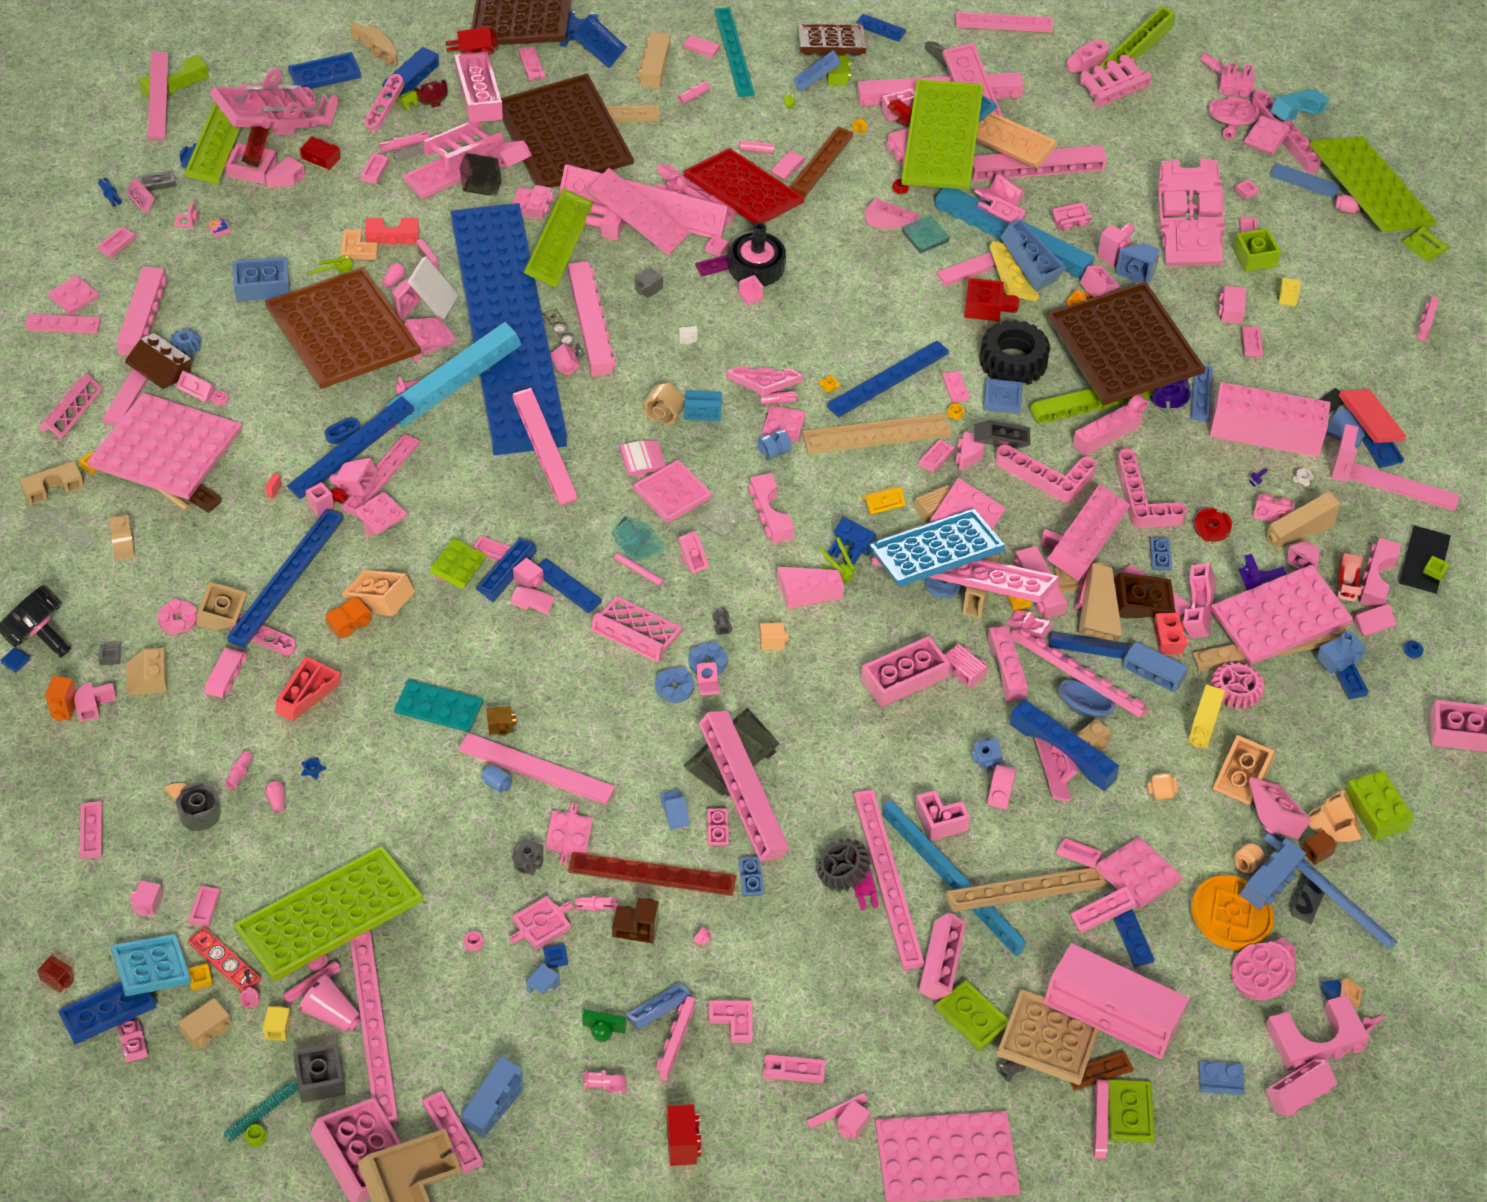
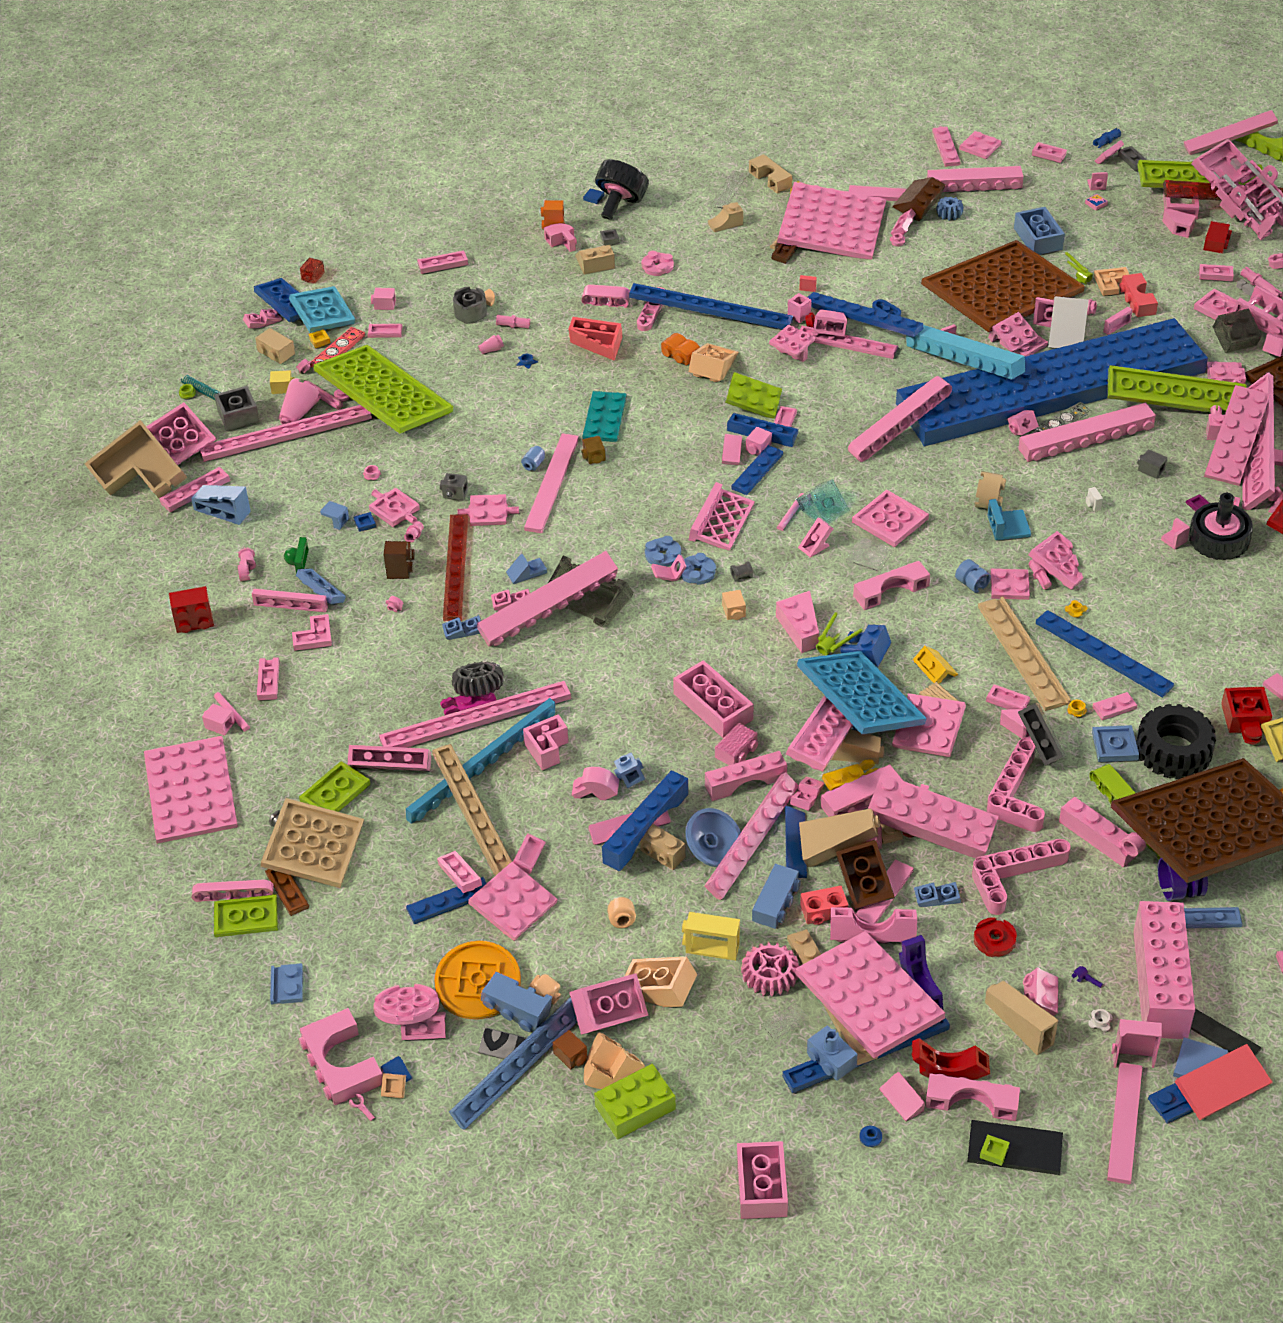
camera: 85 degrees right, 5 degrees down
(65, 402) = (856, 163): bright pink fence -> none
(220, 607) = (666, 274): tan slope -> none
(642, 457) = (925, 493): bright pink slope -> none
(1116, 1001) = (350, 883): bright pink brick -> none
(1301, 1087) = (274, 1042): bright pink brick -> none
(1303, 555) = (966, 1019): bright pink slope -> none

